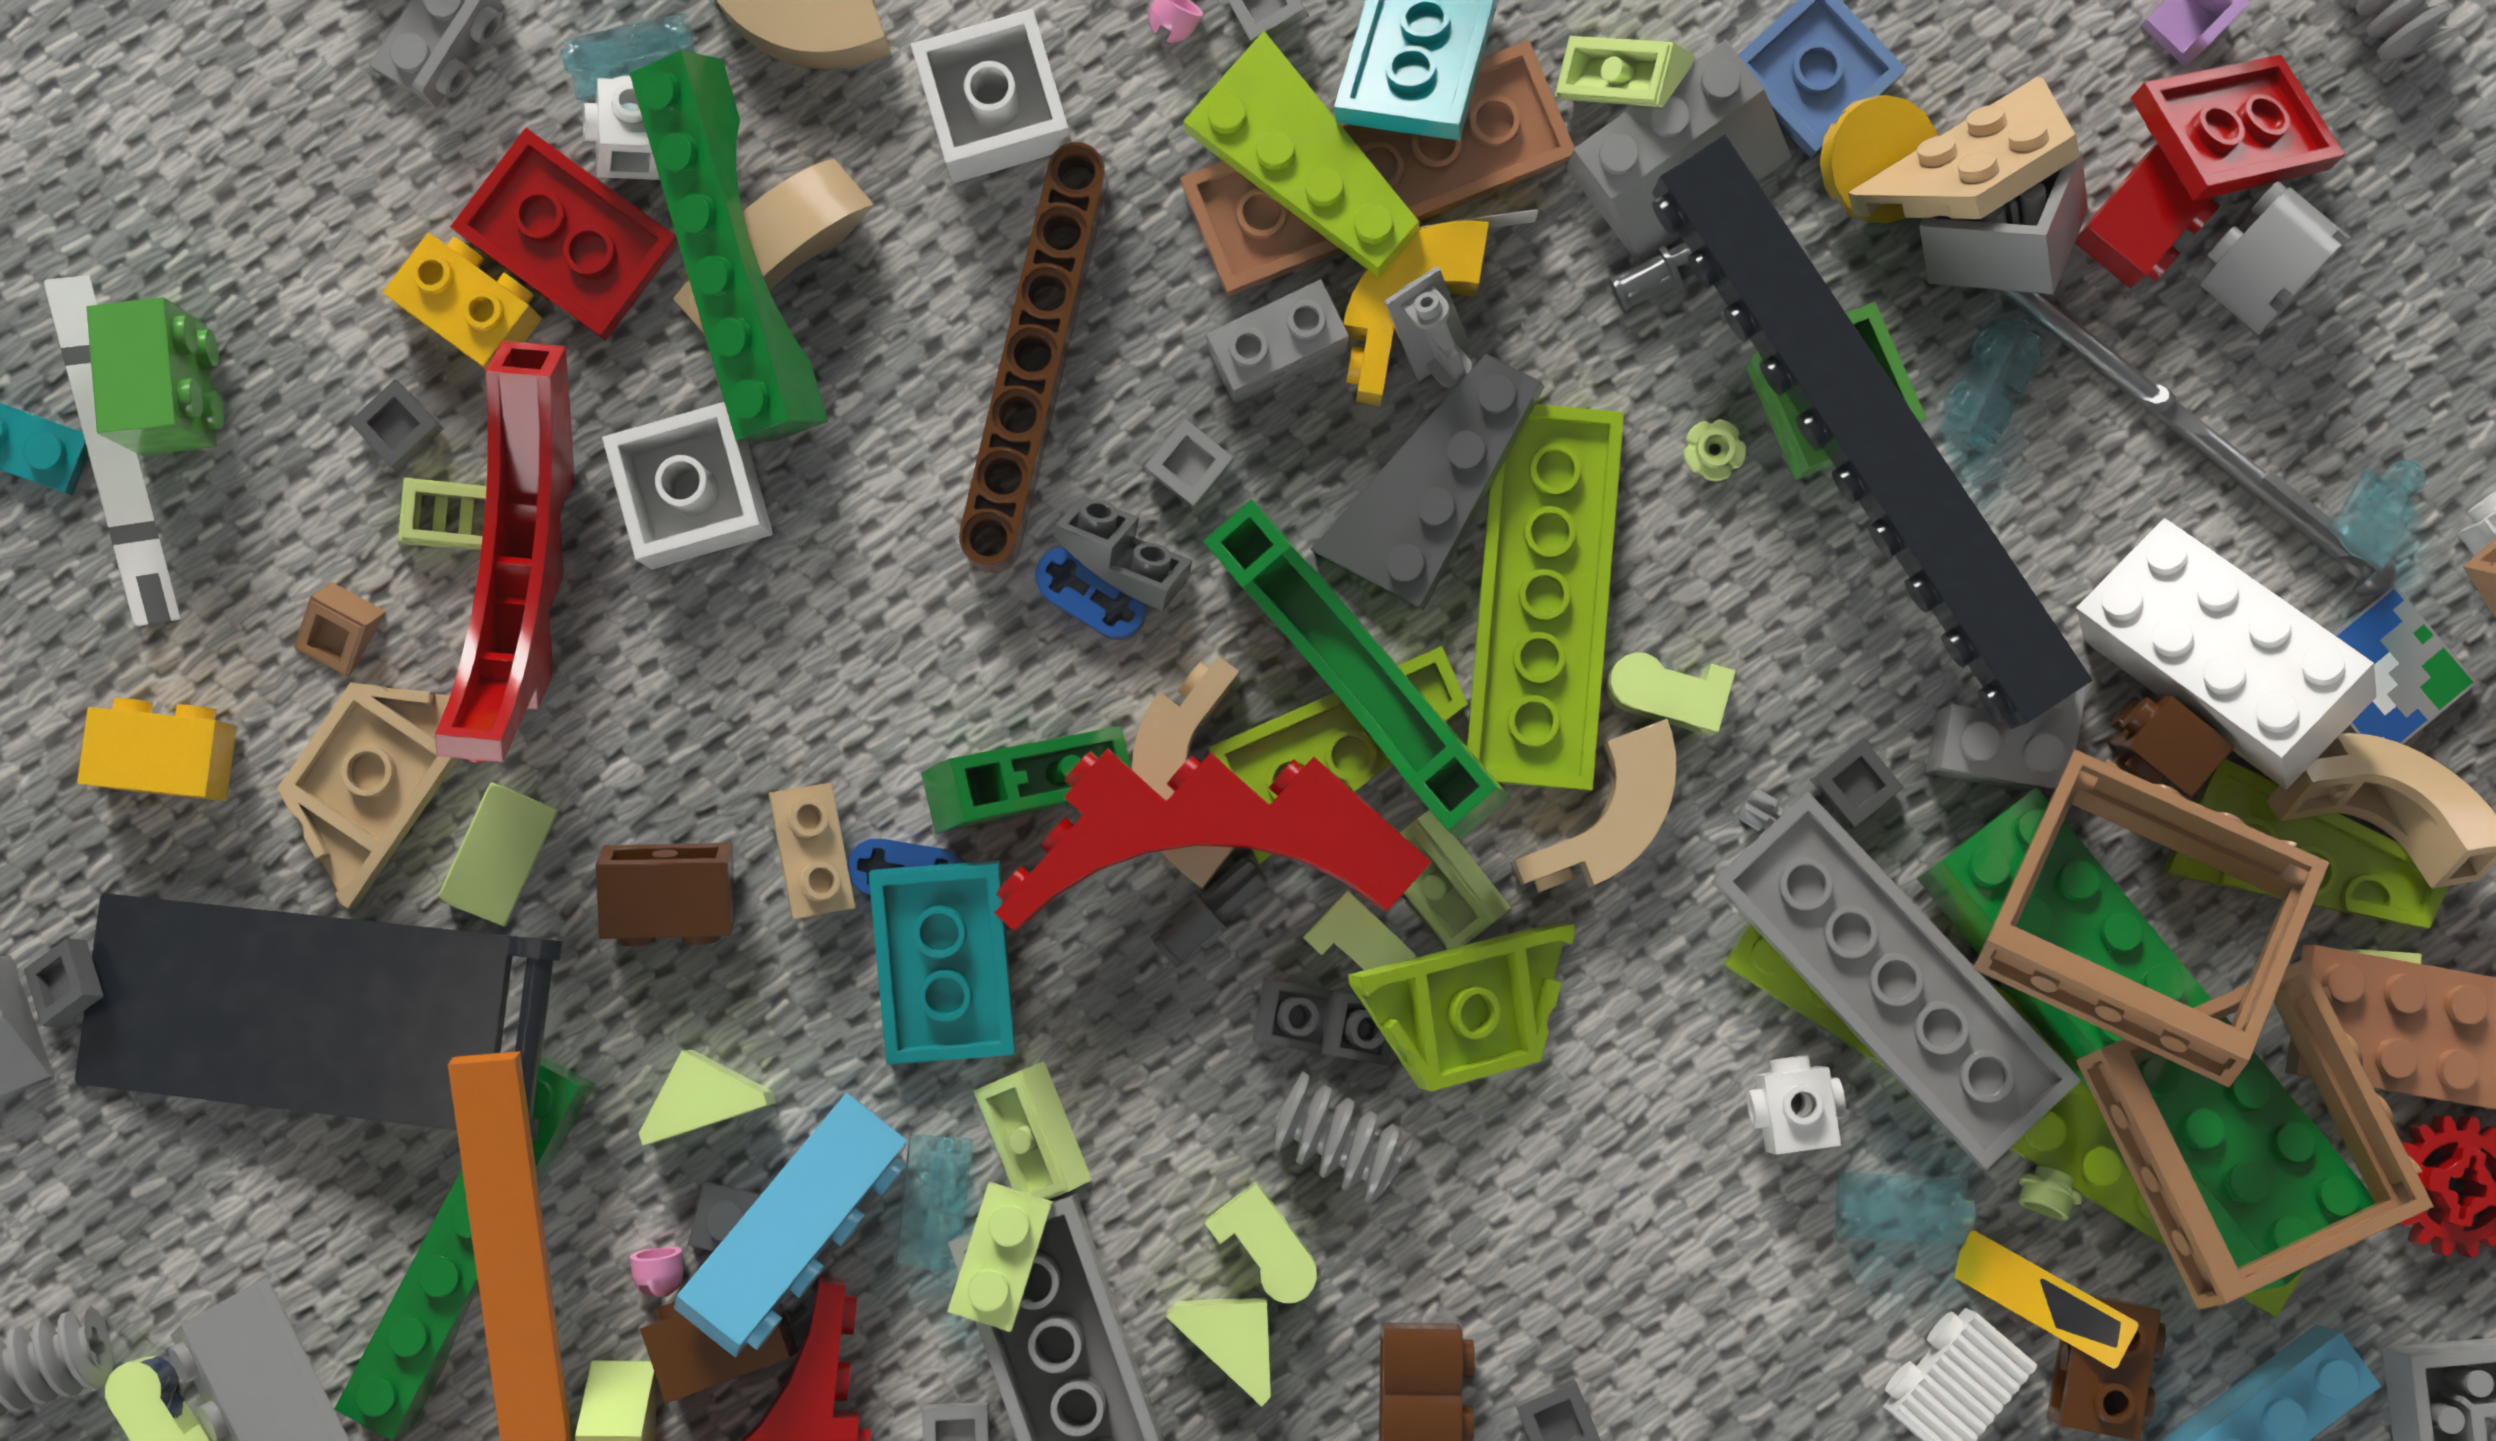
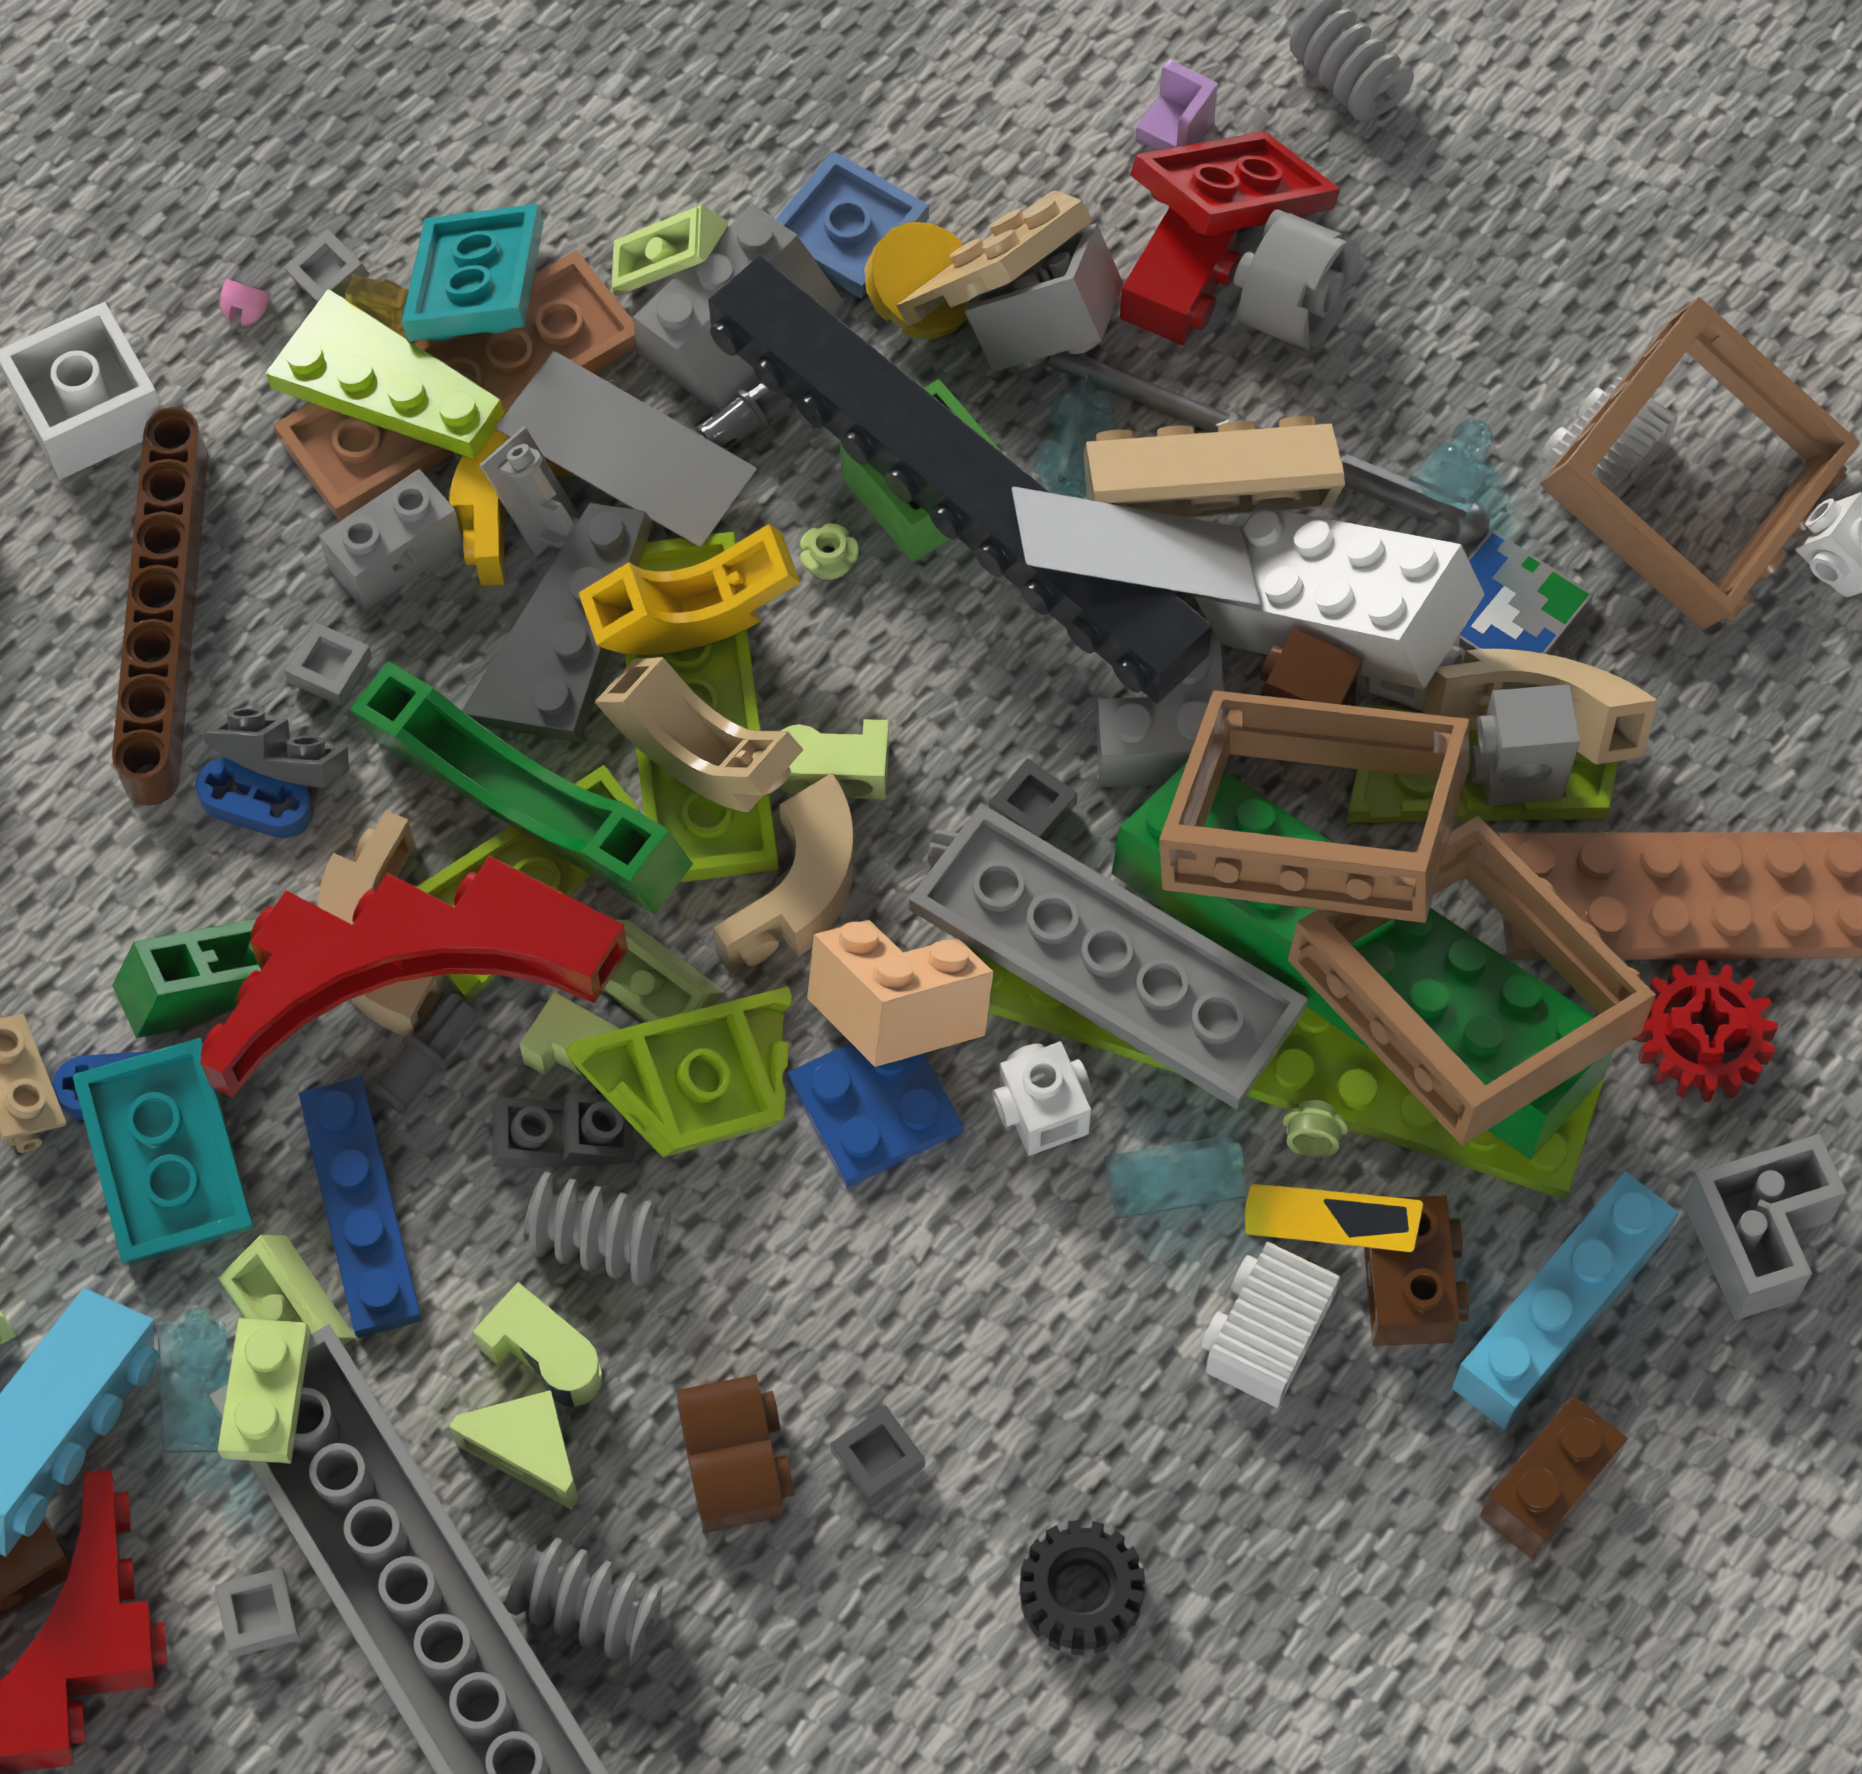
camera: 15 degrees left, 20 degrees down
(1119, 1052) = (359, 1207): none -> blue plate
(1315, 58) = (379, 299): none -> clear yellow plate
(1535, 296) = (628, 448): none -> light grey sticker
(1544, 660) = (694, 740): none -> tan arch
(1569, 498) = (689, 606): none -> yellow arch
(1631, 1062) = (872, 1113): none -> blue plate
(1670, 980) = (896, 1000): none -> light nougat brick
(2034, 568) = (1134, 546): none -> sticker
(2131, 473) = (1217, 470): none -> tan slope
(2376, 868) = (1525, 745): none -> light grey brick

